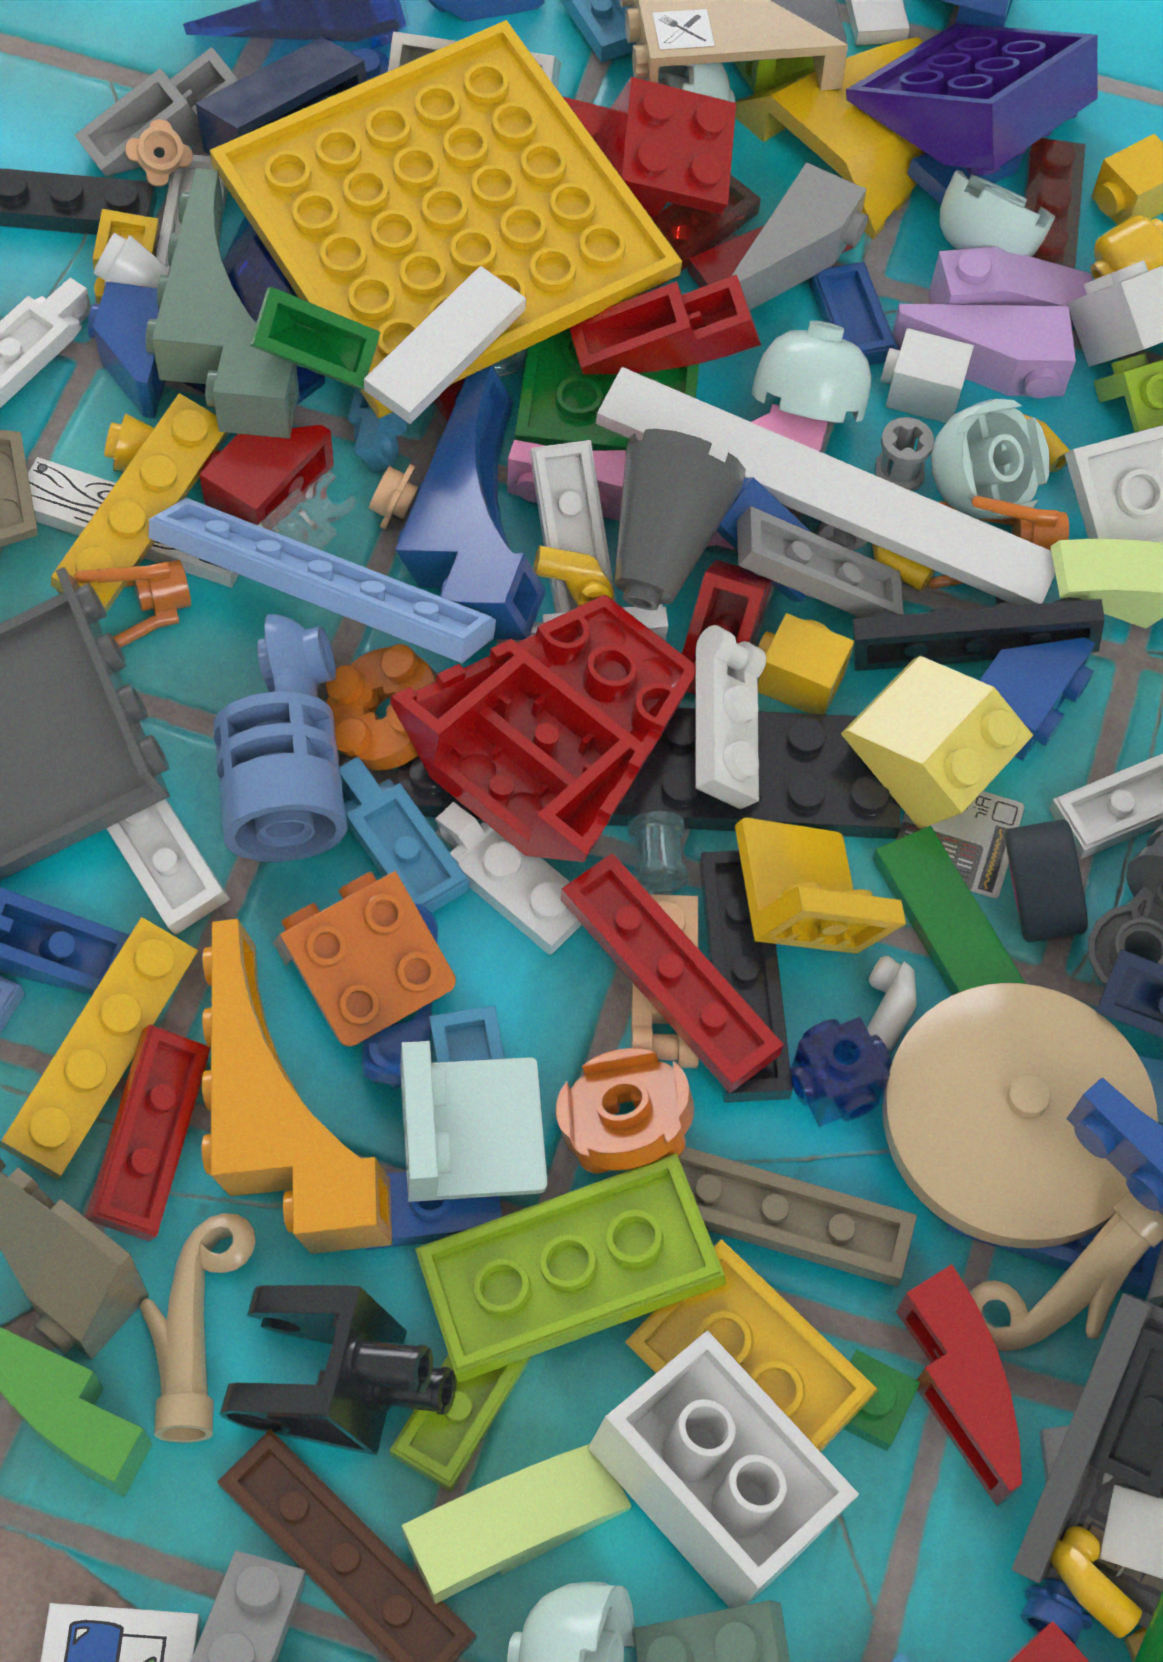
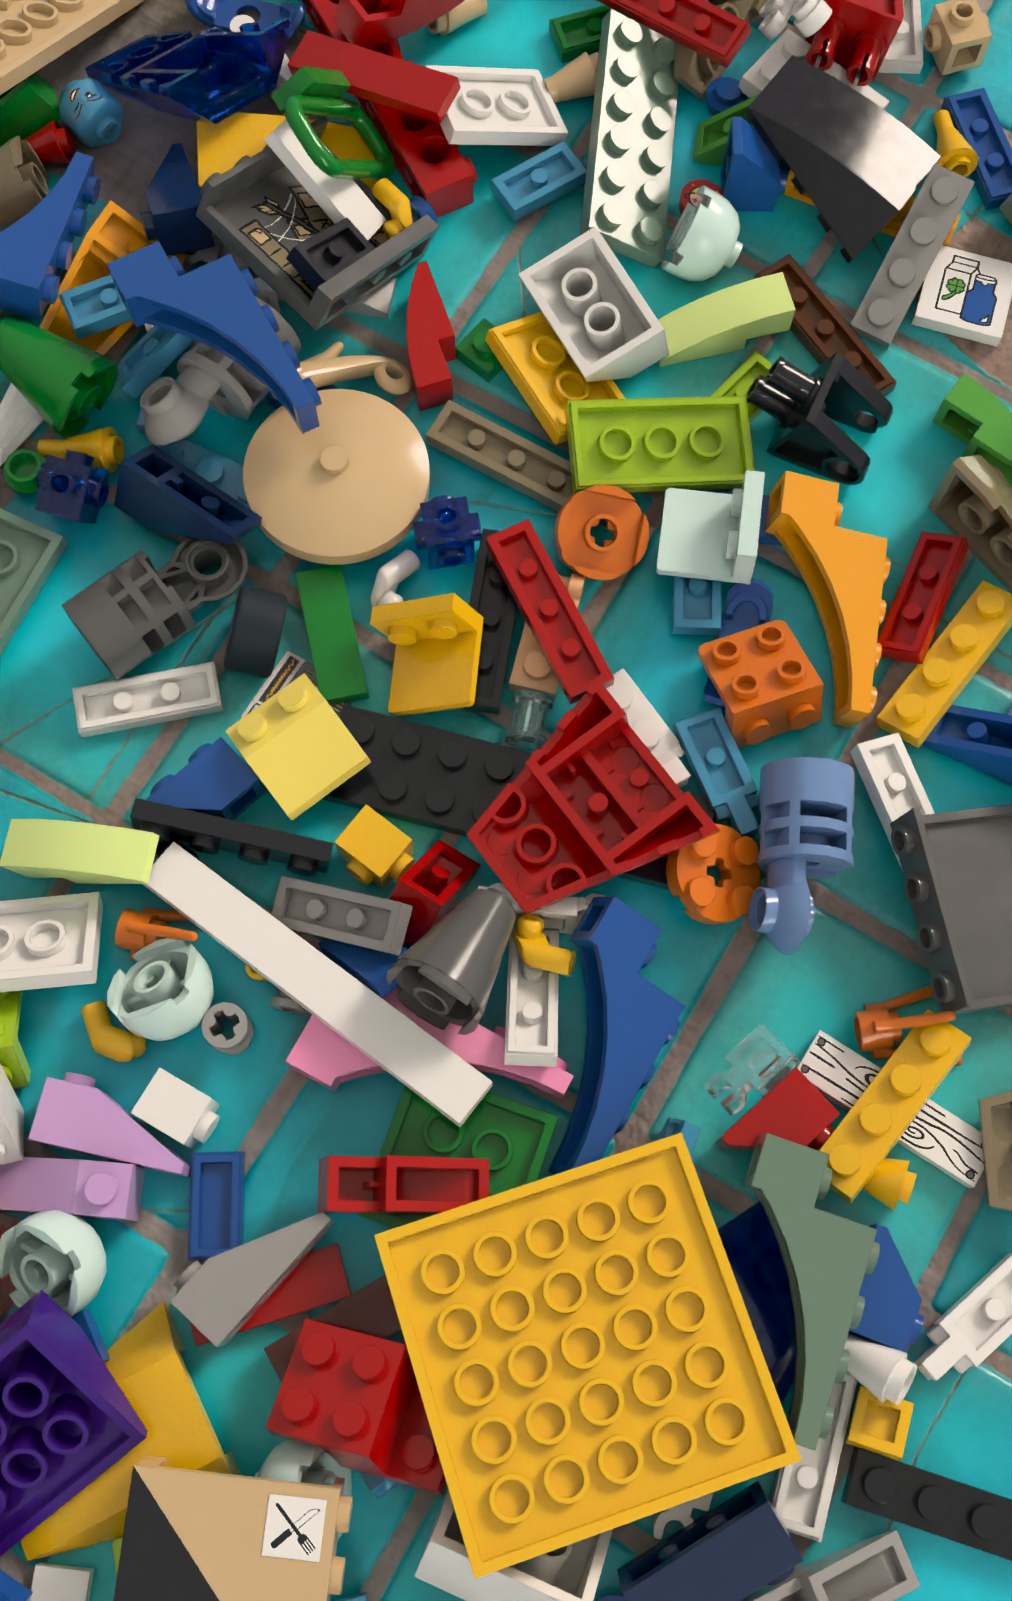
camera: 165 degrees left, 10 degrees up
(164, 137) = (840, 1512): light nougat plate -> none
(184, 1406) = (913, 426): tan plant -> none
(315, 338) = (732, 1192): green slope -> none
(323, 579) = (755, 978): light blue tile -> none
(394, 494) = (672, 1079): light nougat plate -> none
(444, 344) = (612, 1175): white tile -> none
(727, 717) = (454, 793): white plate -> none
(815, 374) = (287, 1103): light aqua cylinder -> none

